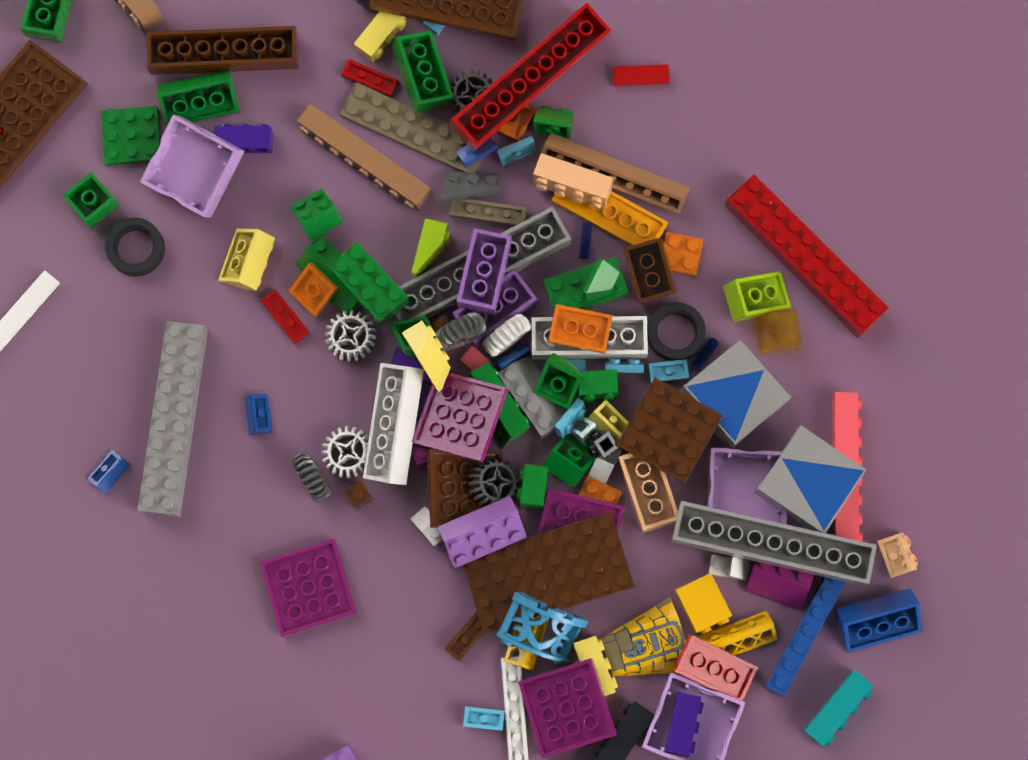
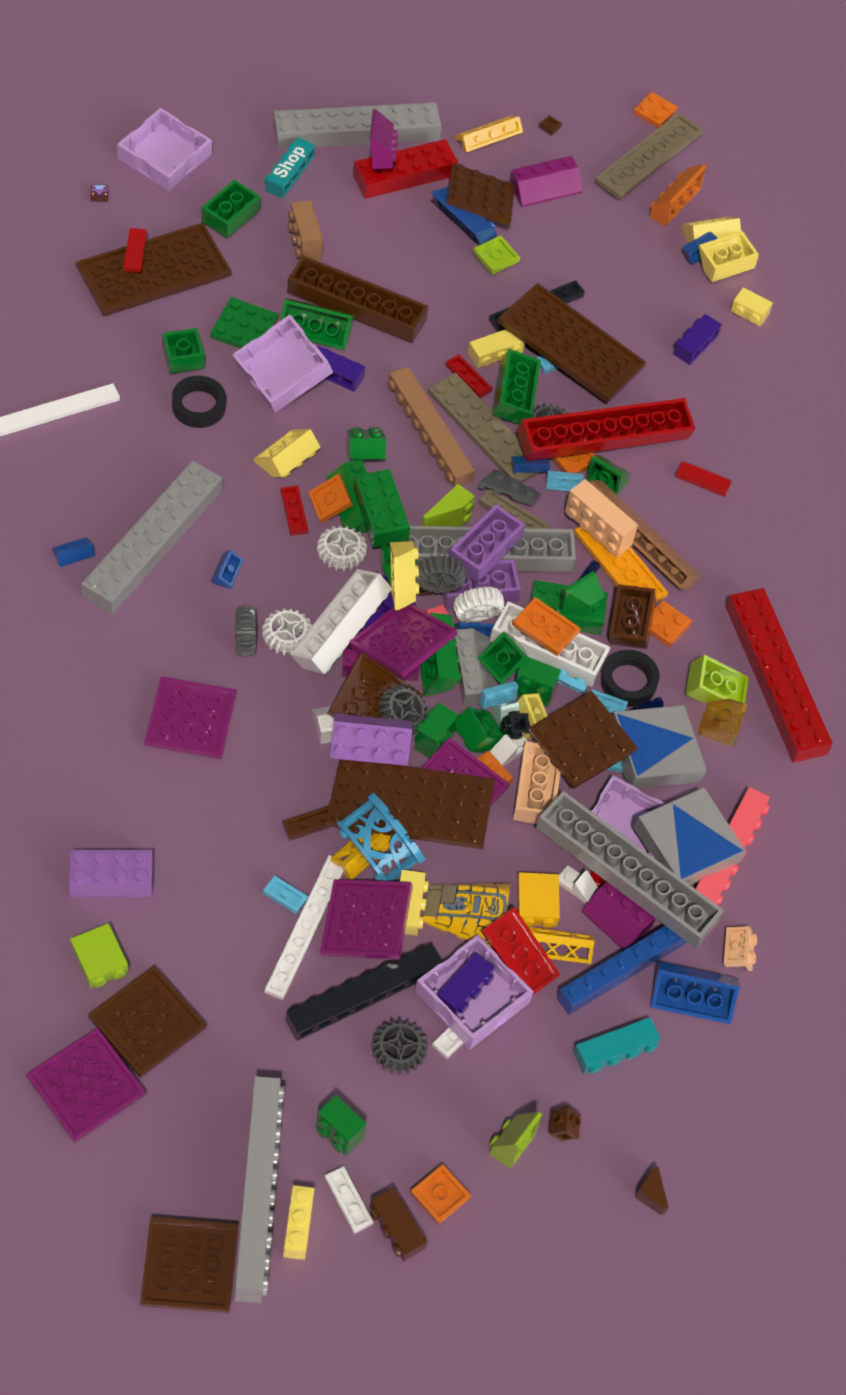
camera: 15 degrees right, 20 degrees down
(359, 495) = (278, 667): reddish brown brick -> none

